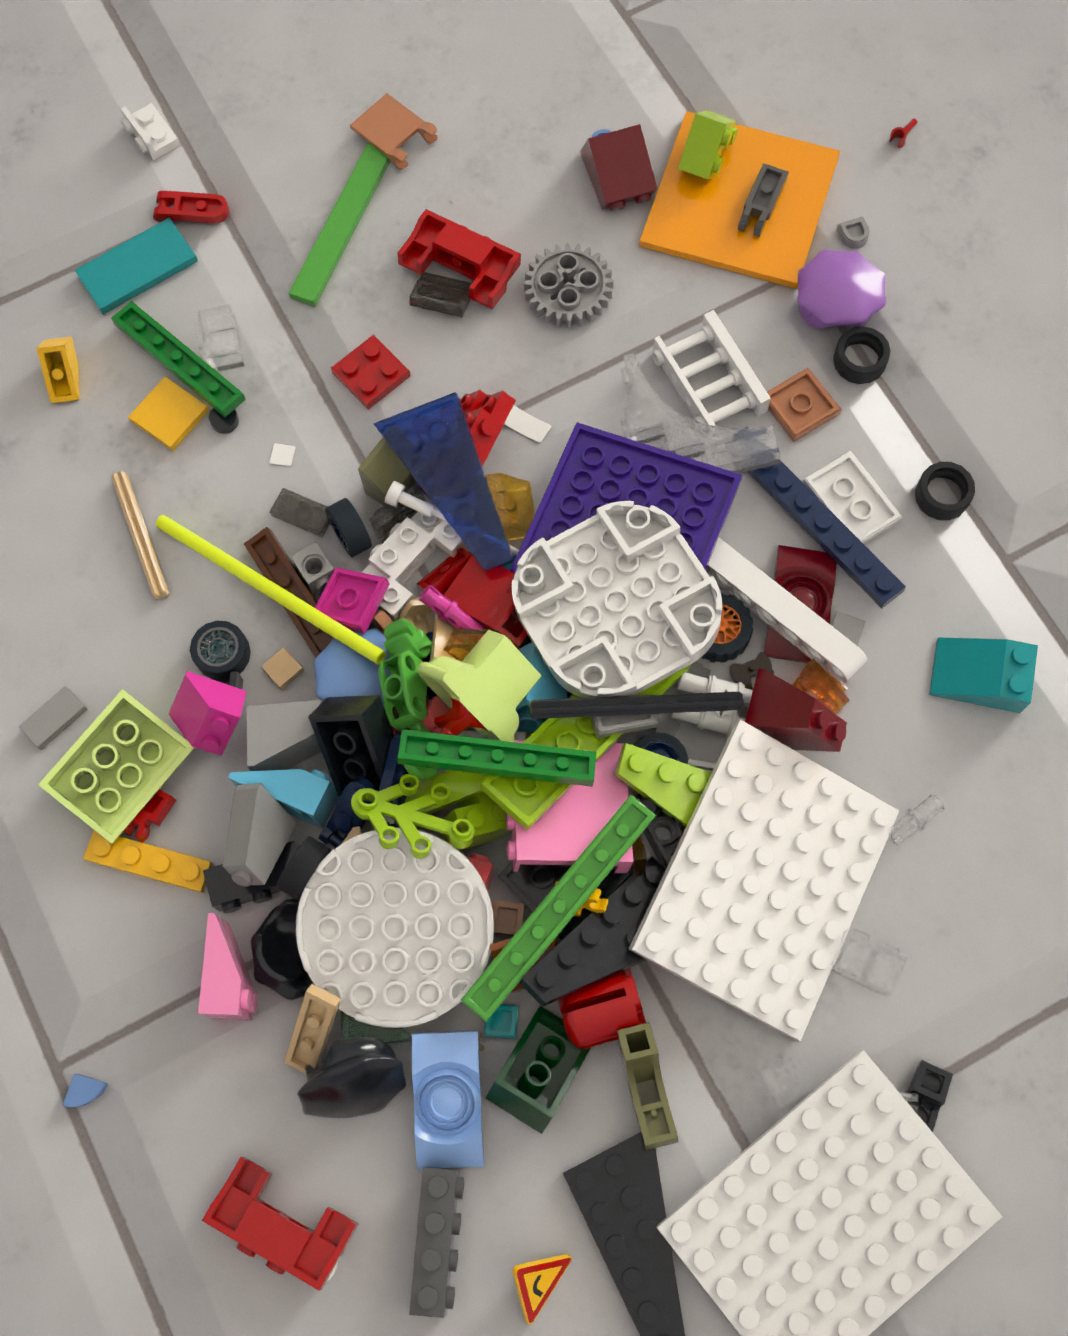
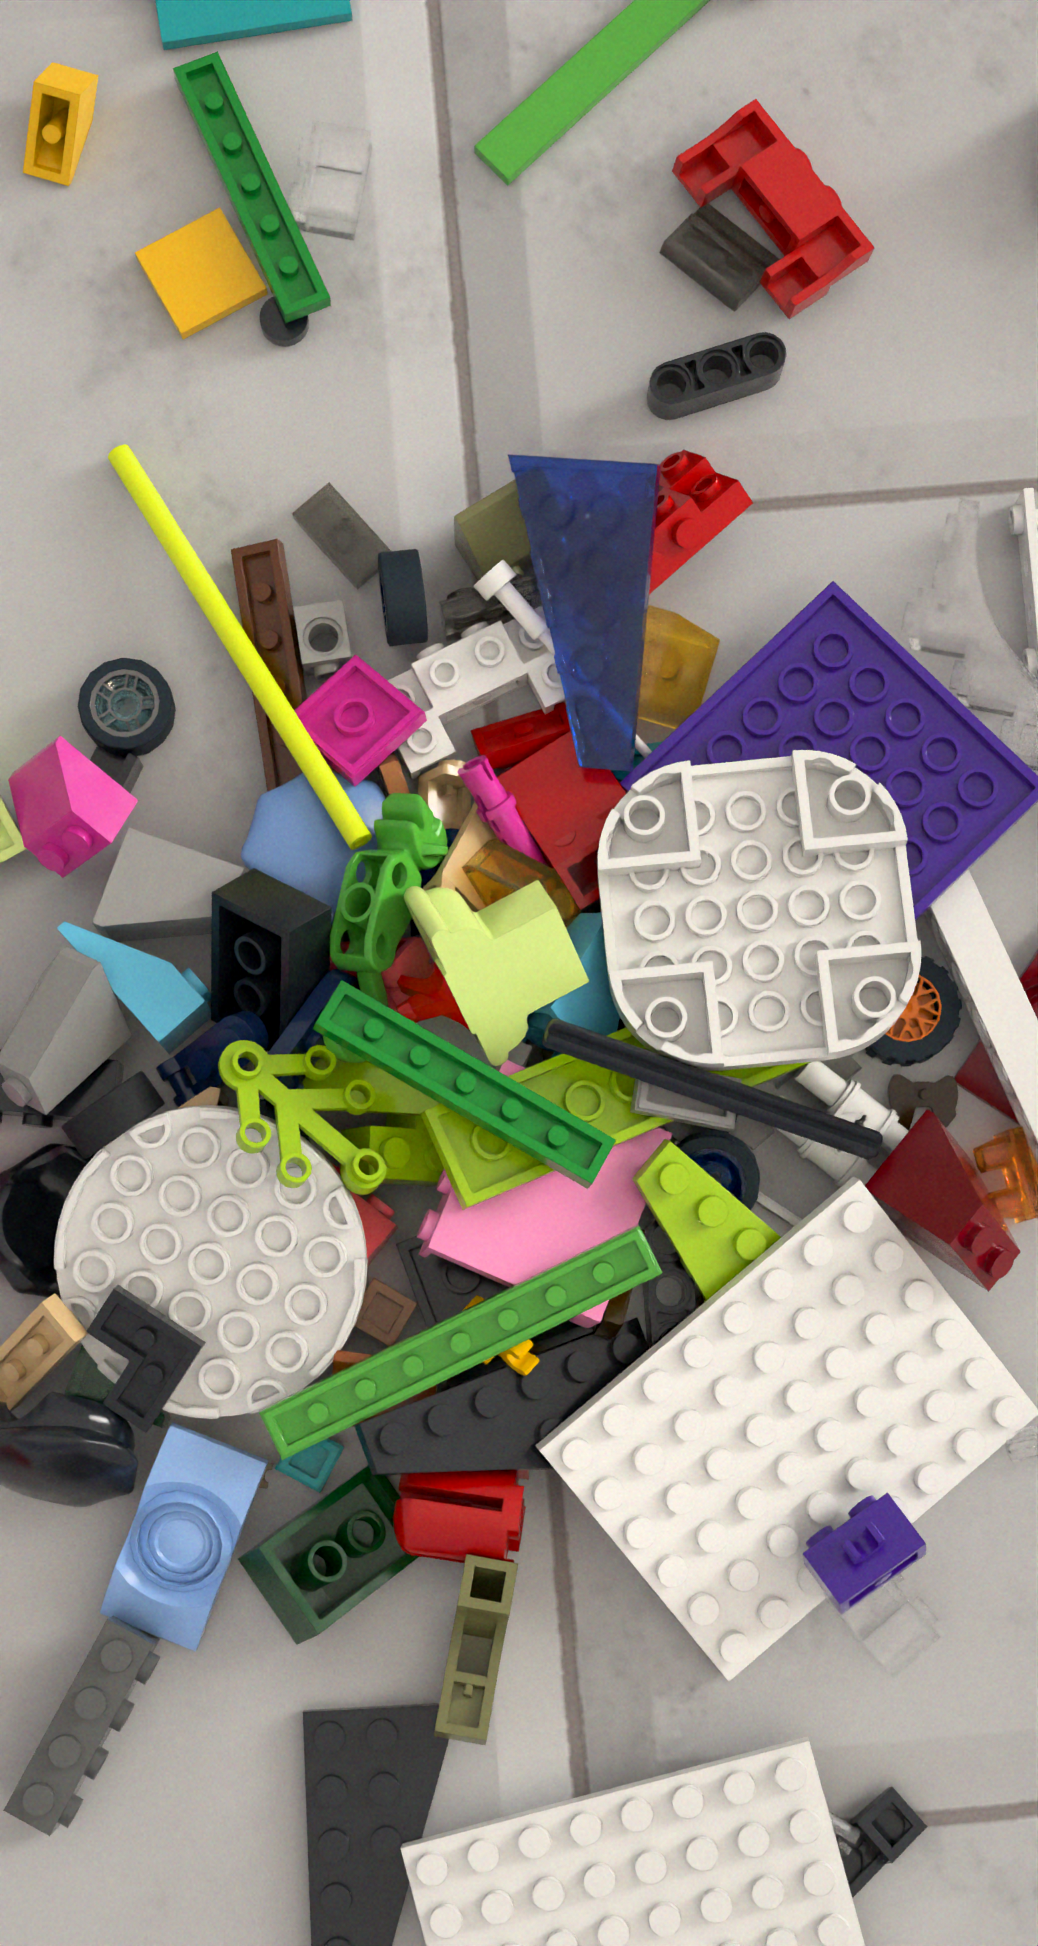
camera: 15 degrees right, 10 degrees up
(140, 535) = (77, 461): tan axle -> none
(282, 454) = (352, 421): white sticker -> none
(282, 668) = (209, 777): tan tile -> none
(370, 372) = (549, 340): red plate -> none
(386, 991) = (157, 1353): none -> black plate
(472, 340) = (730, 358): none -> black beam
(527, 424) = (760, 541): white sticker -> none
(537, 1281) = (201, 1843): piece -> none
(568, 285) = (911, 292): light grey gear -> none
(841, 927) = (863, 1551): none -> dark purple brick

